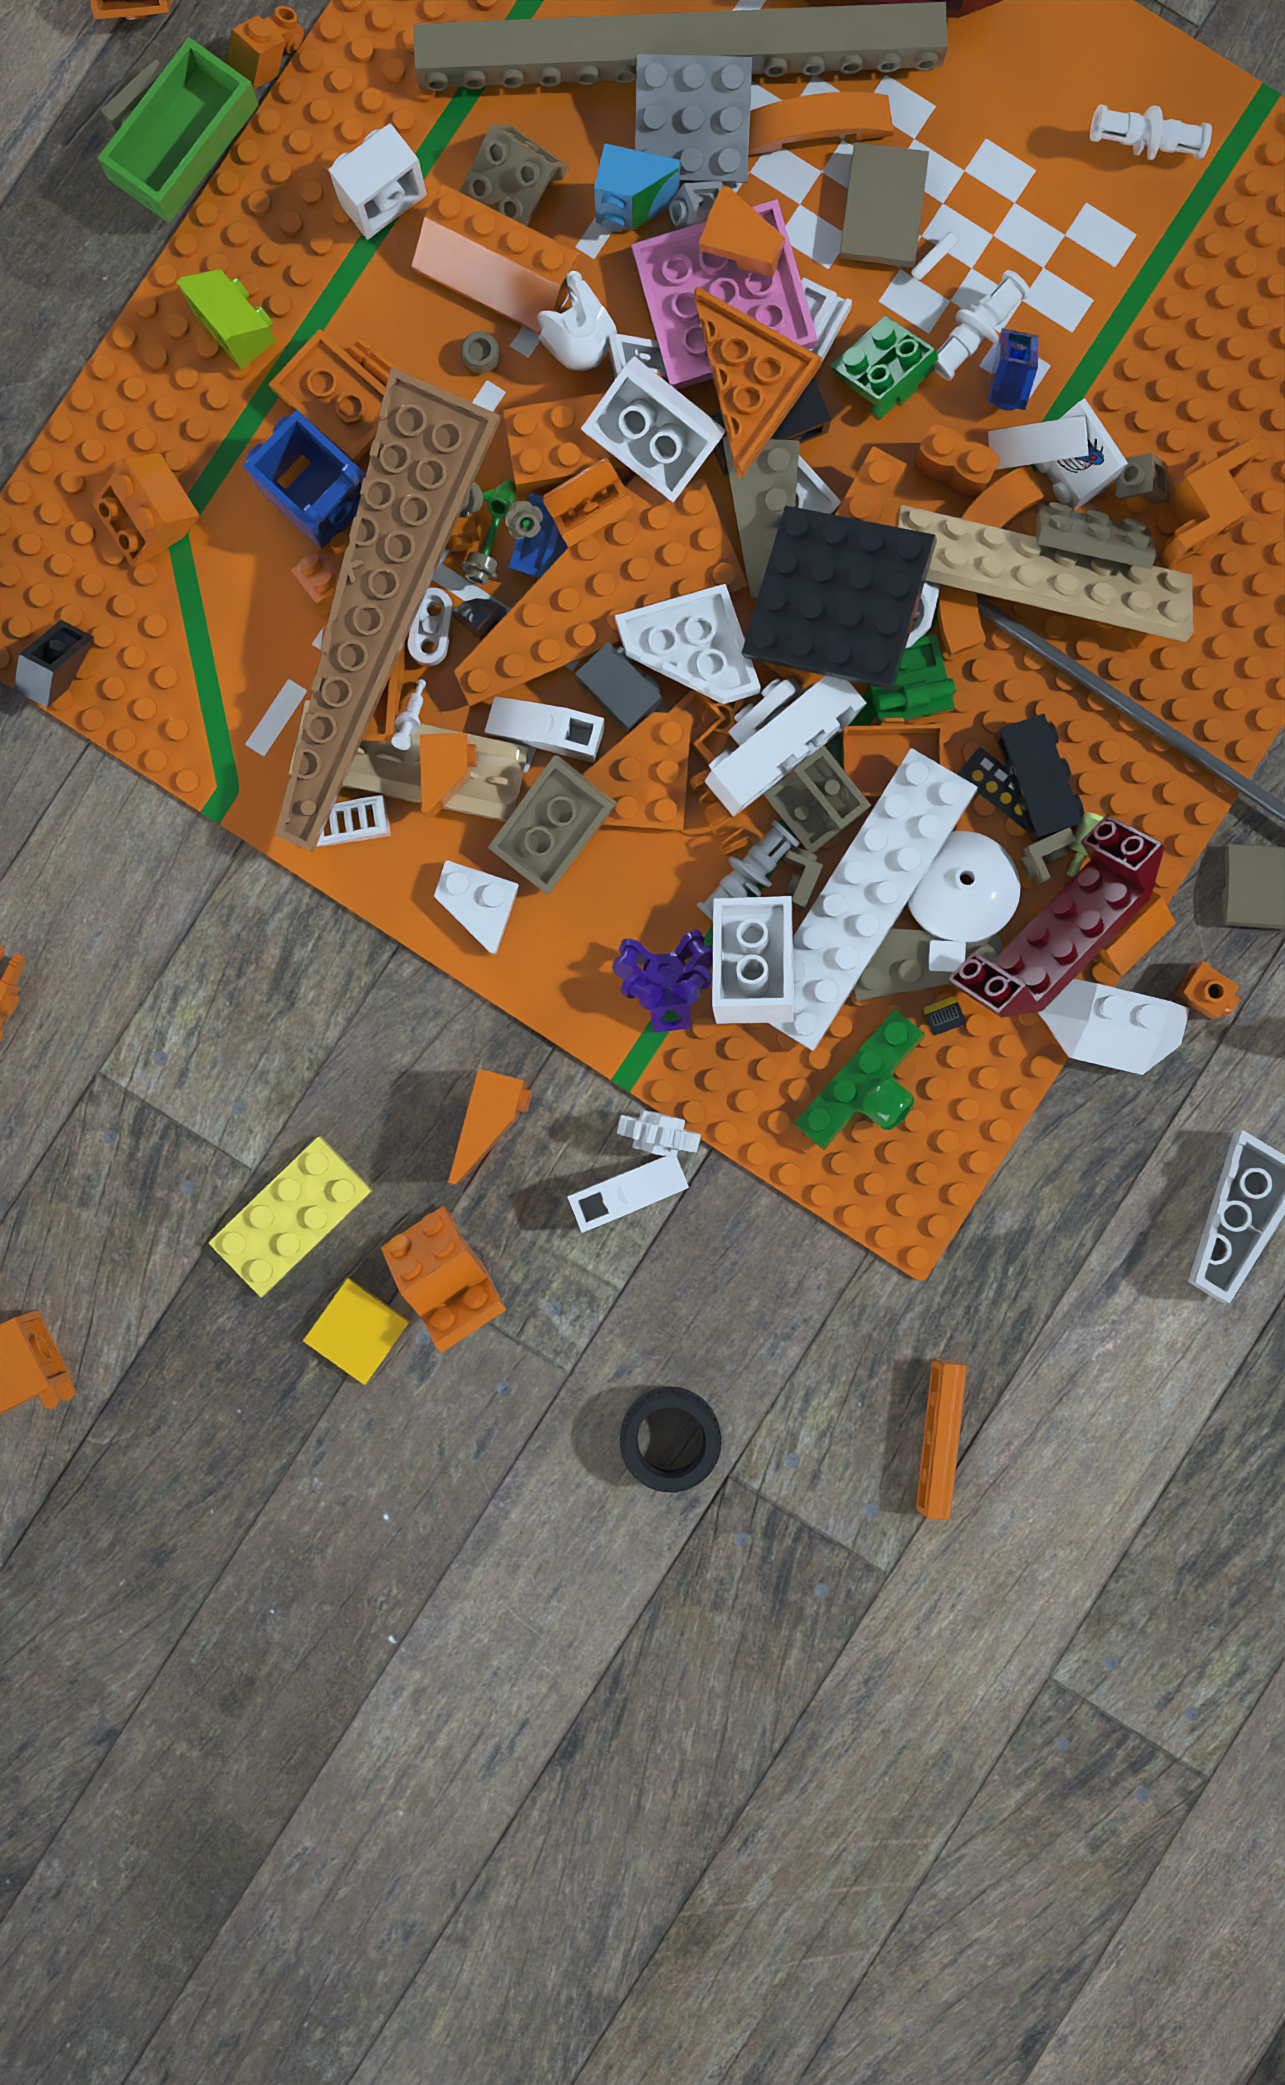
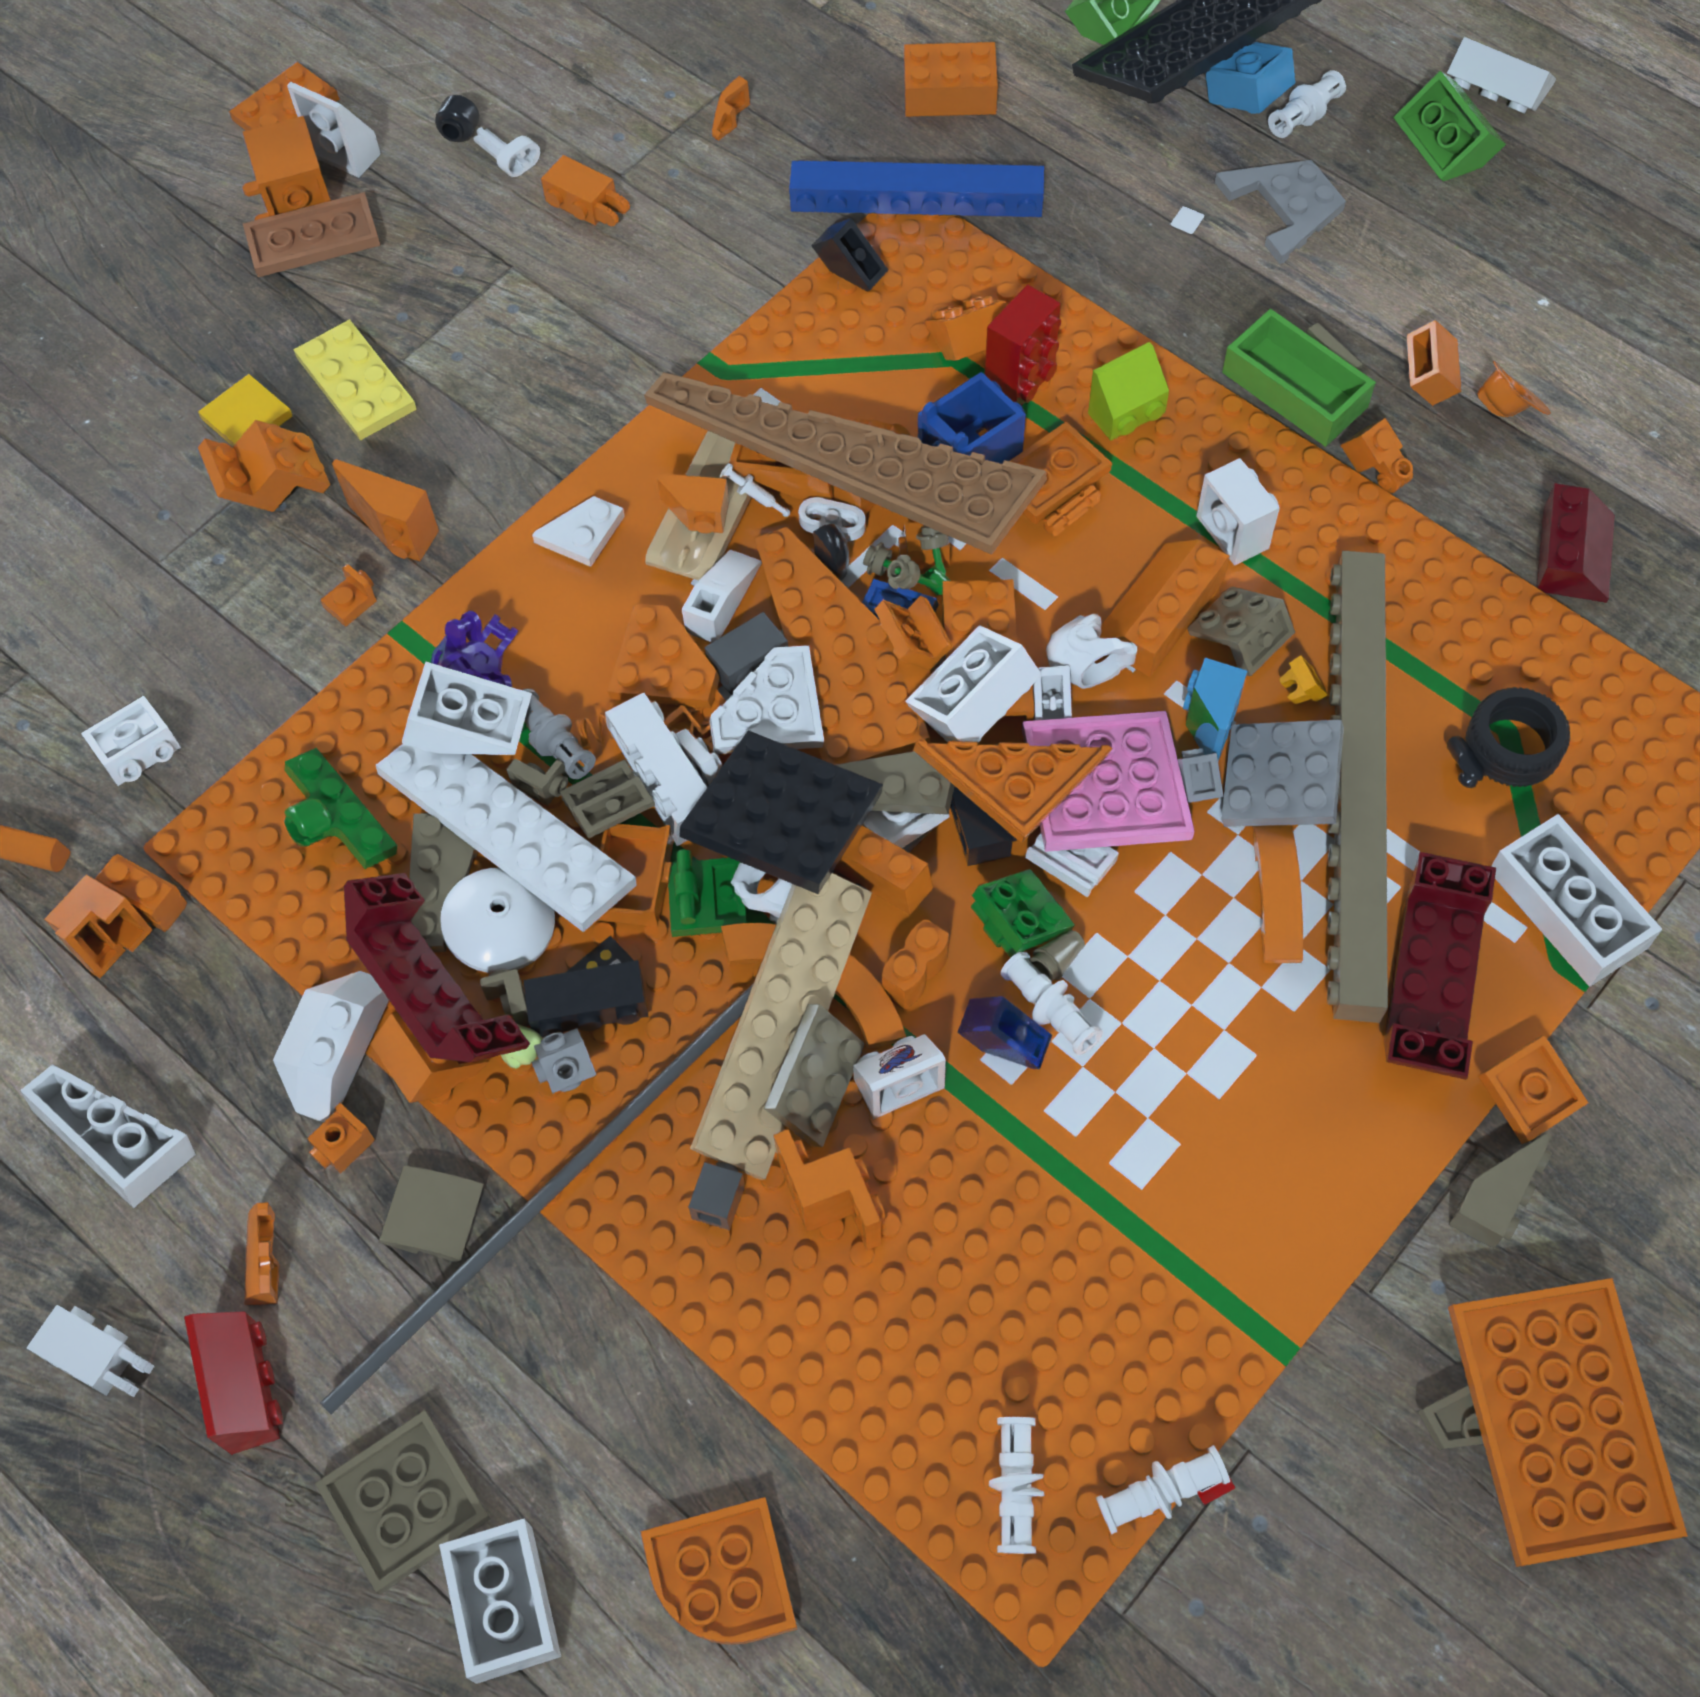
camera: 100 degrees right, 25 degrees down
(83, 1323) = (311, 234): none -> nougat plate
(191, 428) = (1023, 344): none -> red brick
(381, 827) = (673, 464): white slope -> none
(480, 352) = (1080, 587): dark tan tile -> none
(552, 824) = (631, 582): dark tan plate -> none
(574, 103) = (1307, 681): none -> light orange tile
(590, 1143) = (350, 597): none -> orange bracket
(627, 1192) = (295, 610): white slope -> none
(658, 1133) = (336, 635): white gear -> none
(678, 1479) = (59, 596): black tyre -> none
(741, 235) = (1159, 789): orange slope -> none
(807, 1327) = (131, 741): none -> white plate
(884, 204) = (1189, 941): dark tan tile -> none
(924, 325) = (1057, 955): none -> dark tan cone
(934, 256) = (1133, 982): white piece -> none
(946, 955) = (434, 890): white sticker -> none
(982, 1262) = (149, 894): none -> orange brick
(1029, 1292) = (97, 925): none -> orange plate
(1040, 442) = (917, 1032): white sticker -> none
(1111, 783) = (563, 1061): none -> light grey brick
(1144, 477) = (871, 1138): dark tan bracket -> none
(1150, 131) = (1239, 1199): white piece -> none
(1220, 614) = (717, 1195): none -> dark grey brick

